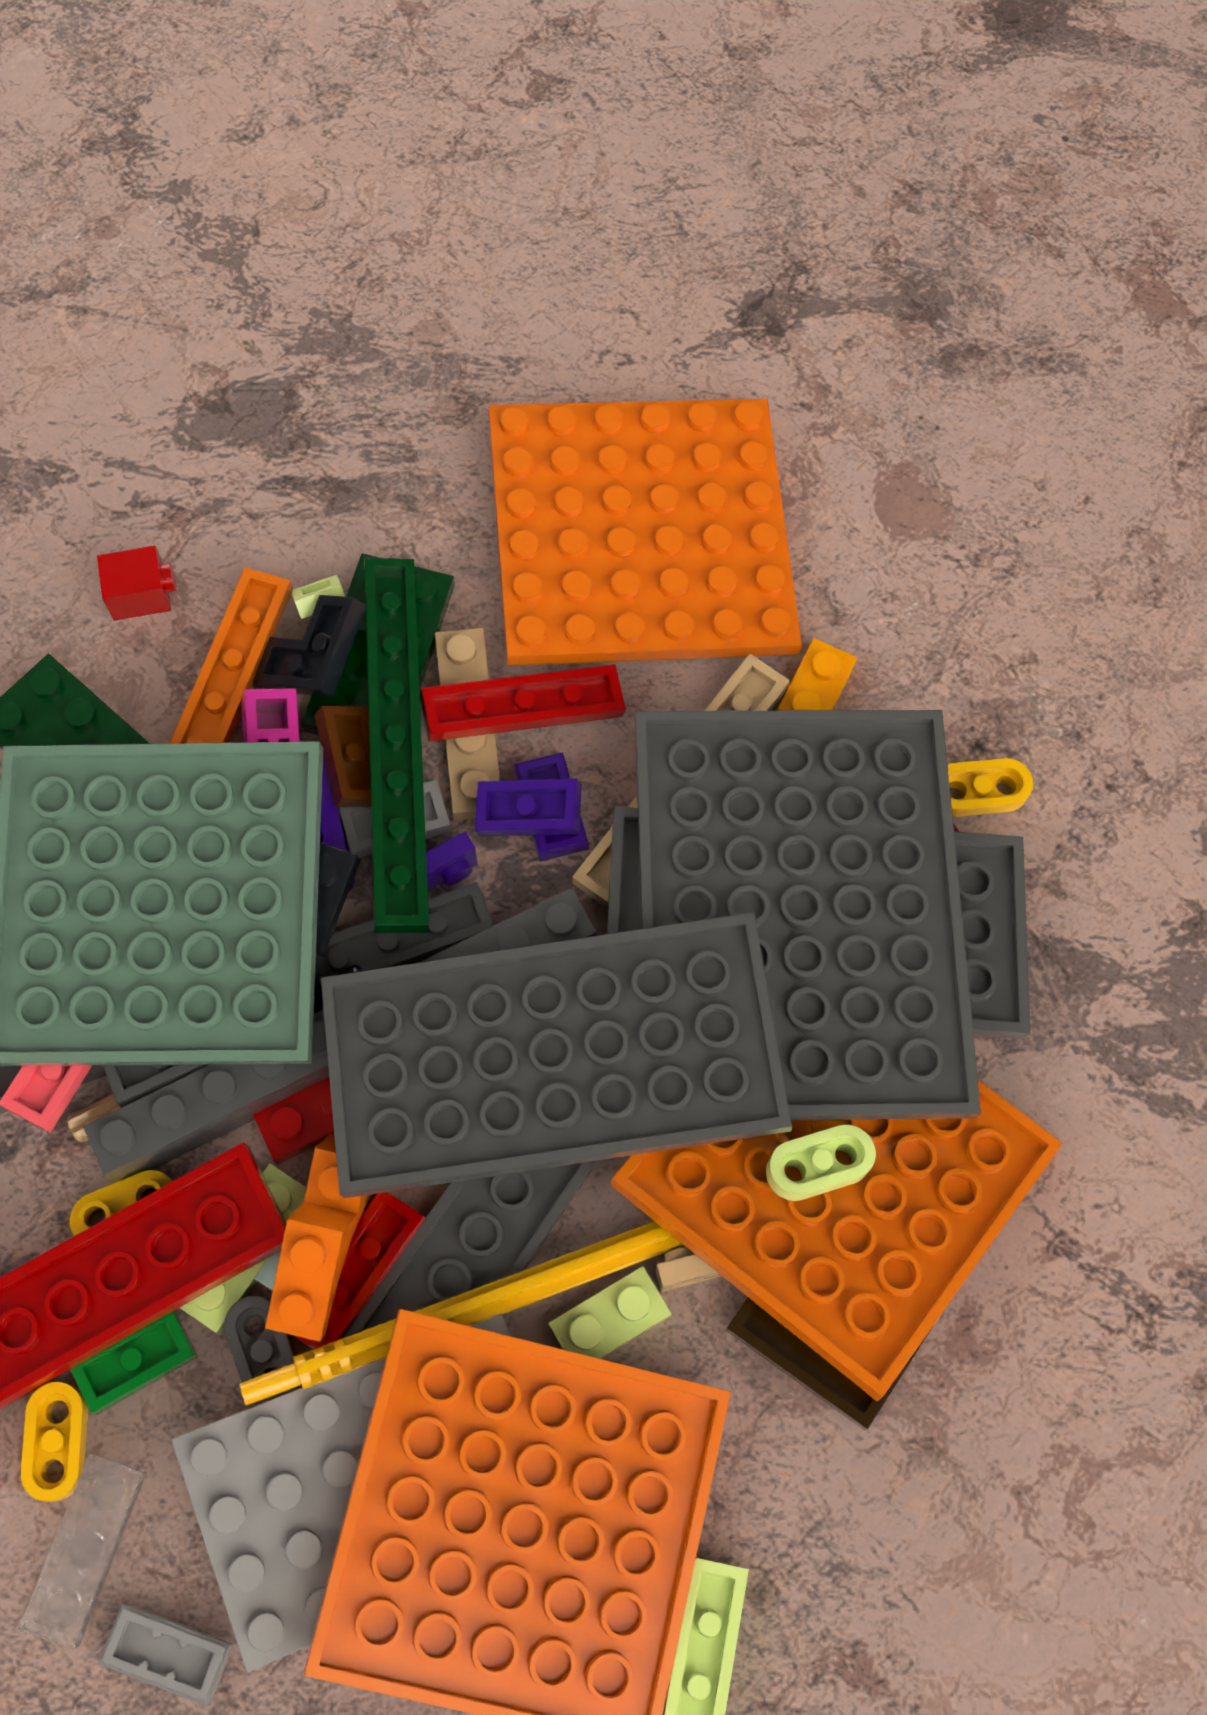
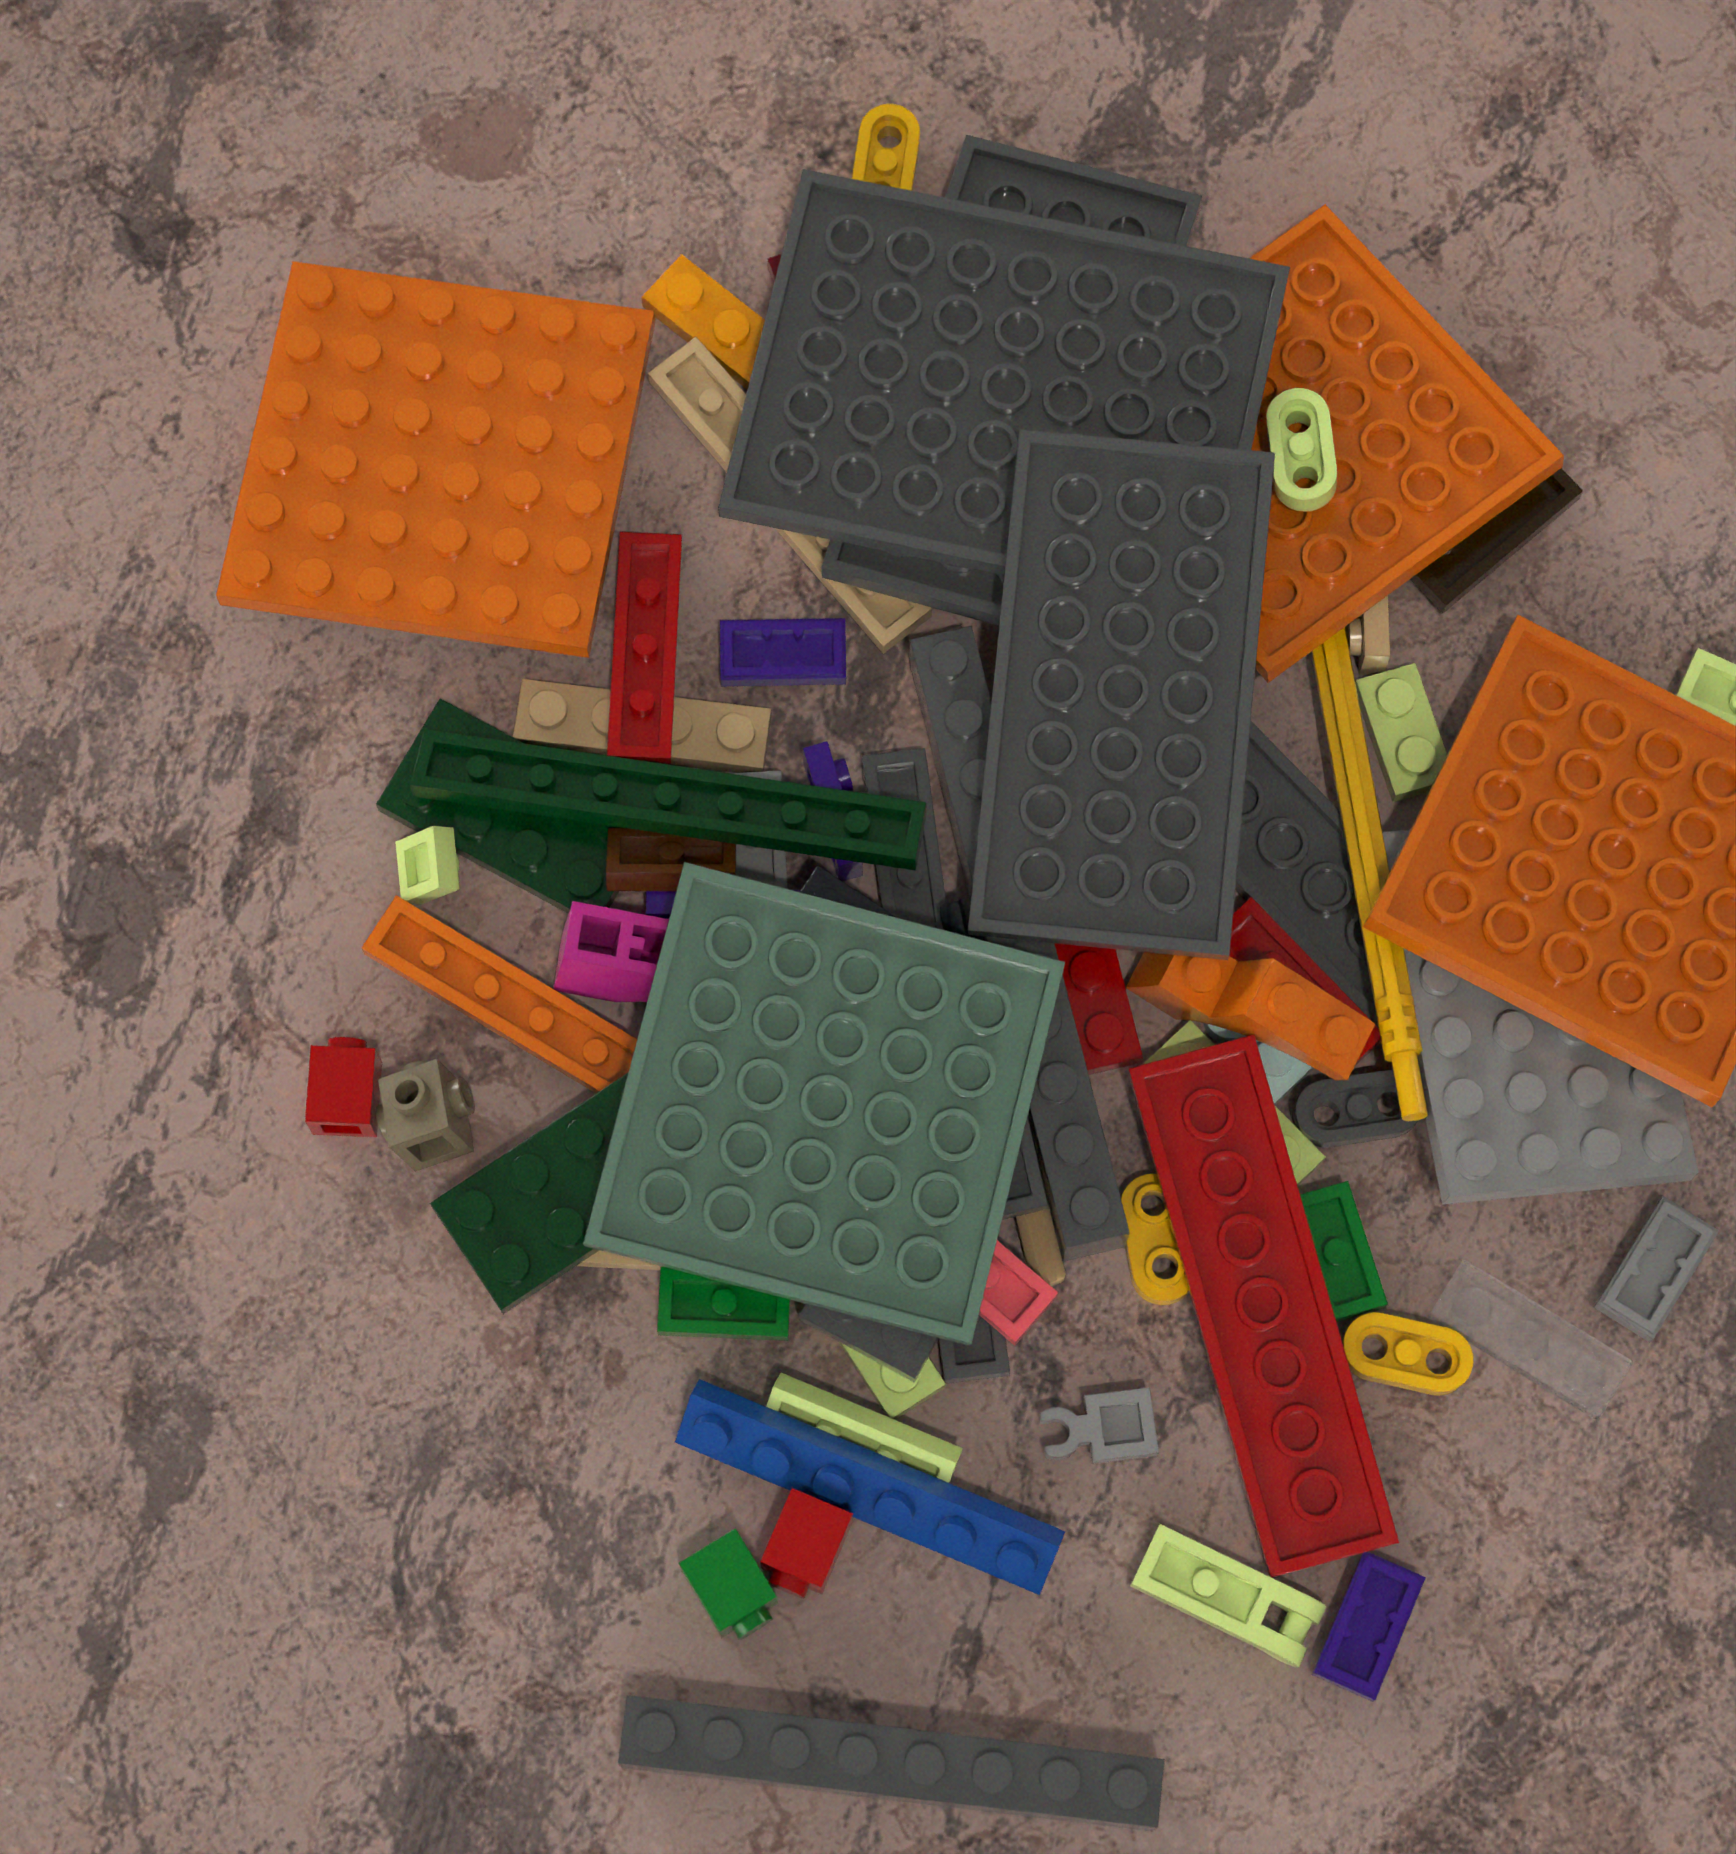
camera: 75 degrees left, 5 degrees up
(122, 637) = (425, 1114): none -> dark tan brick
(318, 660) = (530, 878): black plate -> none
(528, 807) = (792, 669): dark purple plate -> none

